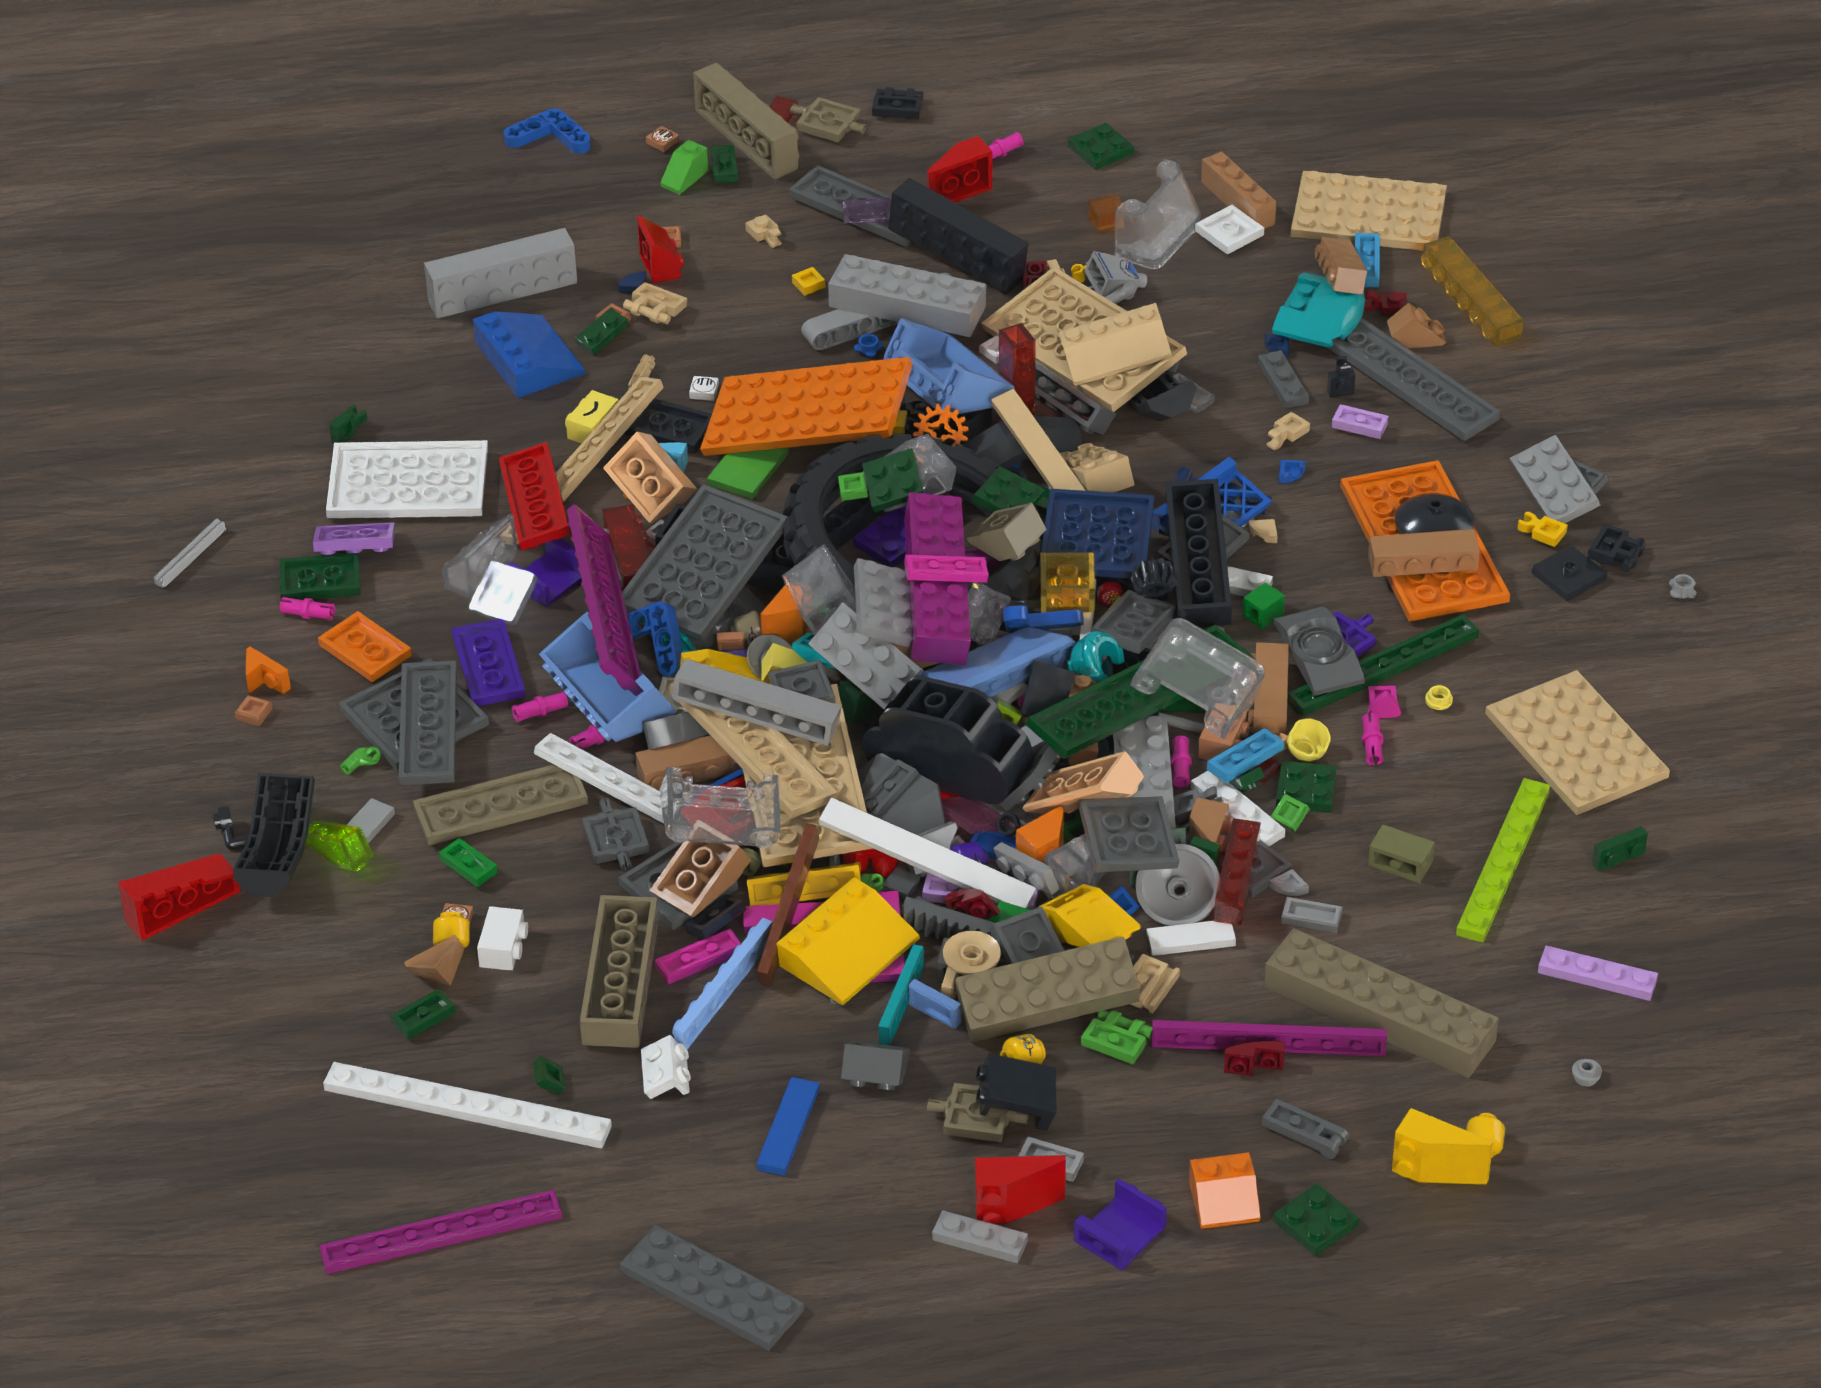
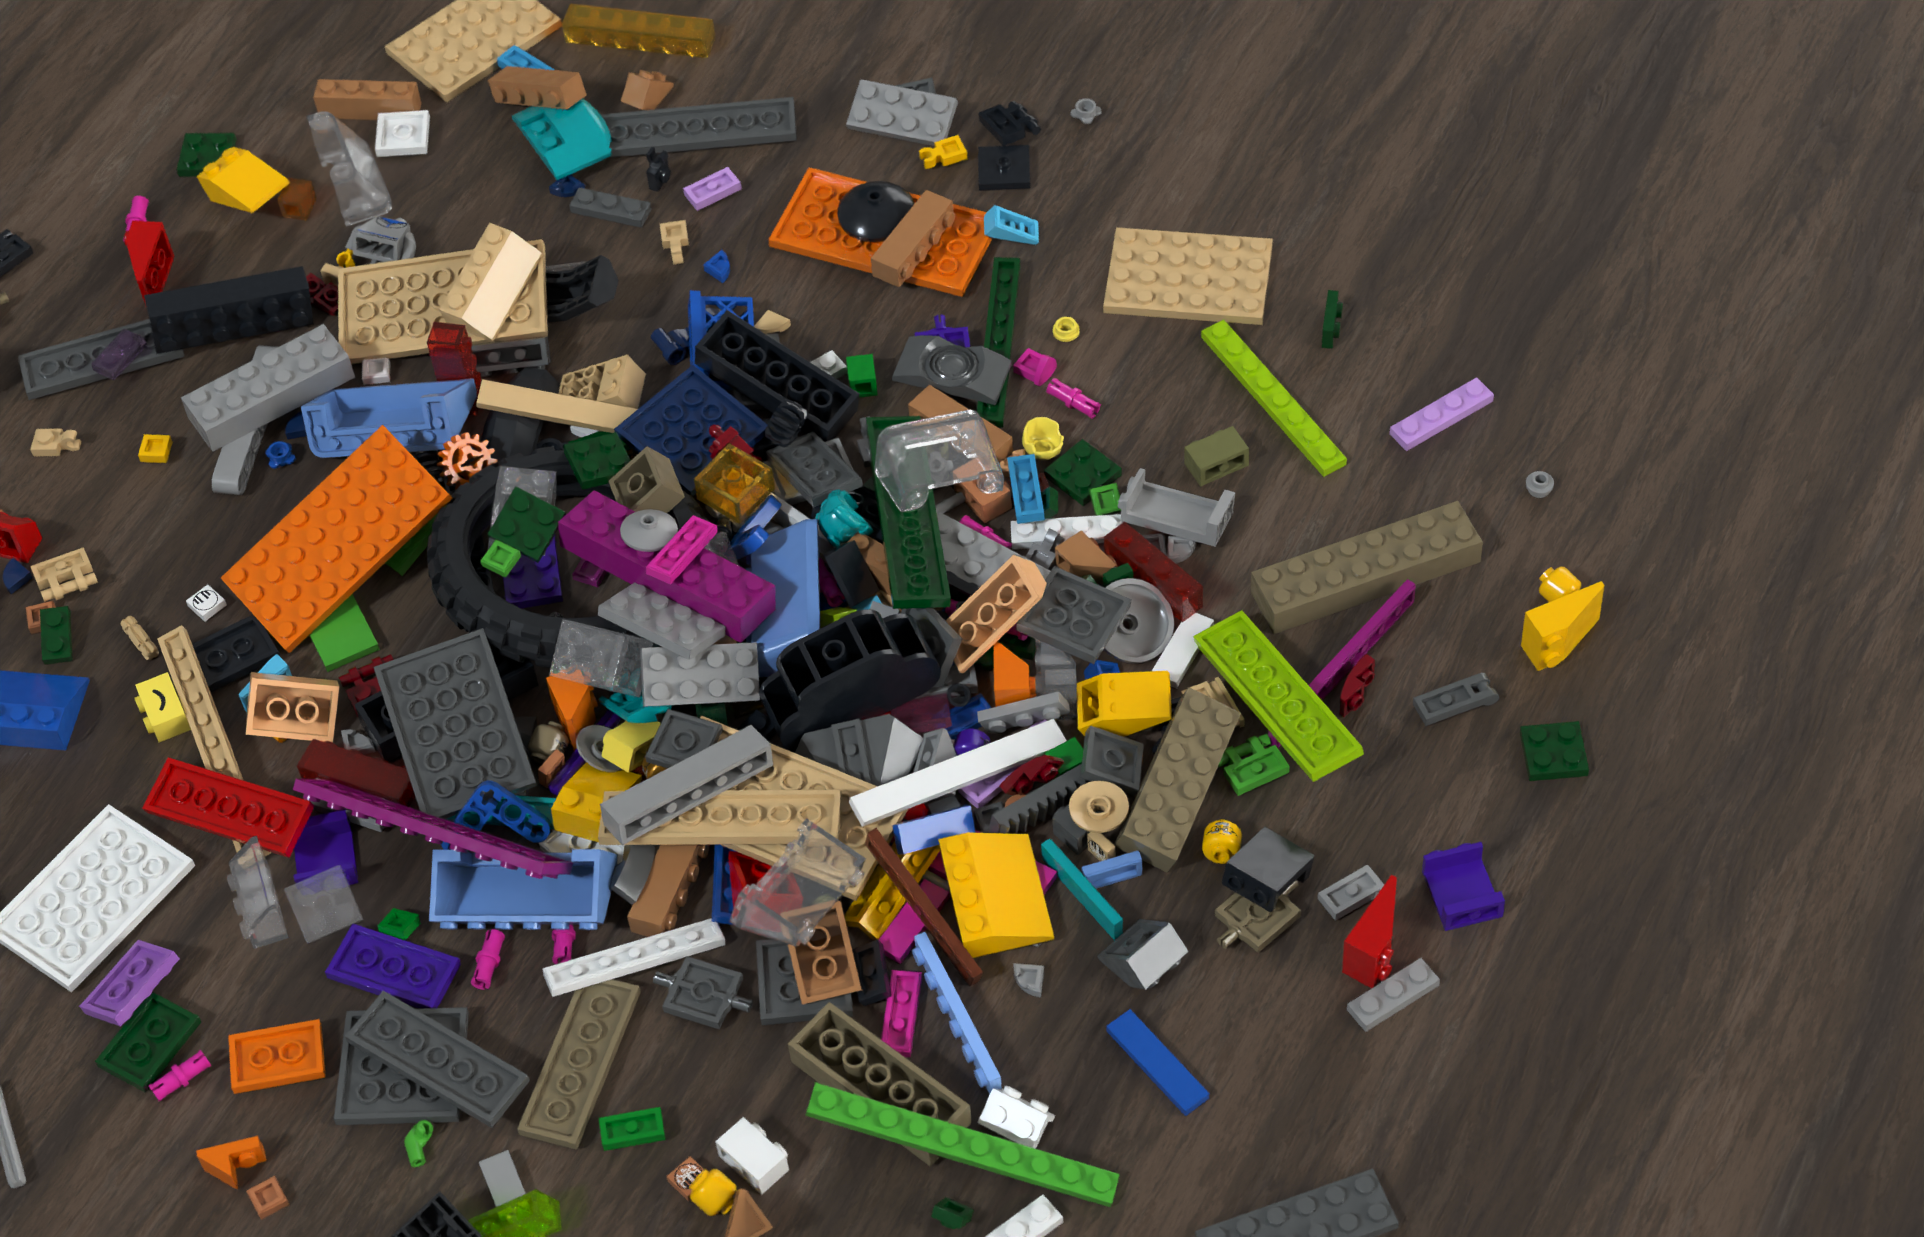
camera: 50 degrees left, 10 degrees up
(525, 643) = (399, 923): none -> green plate
(600, 1040) = (962, 1144): none -> bright green plate
(797, 1012) = (1029, 978): none -> light grey tile
(852, 864) = (926, 830): none -> tile
(948, 541) = (648, 530): none -> light grey dish
(1086, 171) = (241, 180): none -> yellow slope
(1101, 555) = (724, 438): none -> dark red piece
(1184, 1006) = (1278, 696): none -> lime plate
(1224, 1190) = (1483, 793): slope -> none
(1311, 915) = (1226, 555): light grey tile -> none
(1319, 856) = (1175, 510): none -> light grey panel
(1388, 302) = (597, 87): dark red plate -> none
(1514, 603) = (995, 226): none -> medium azure slope

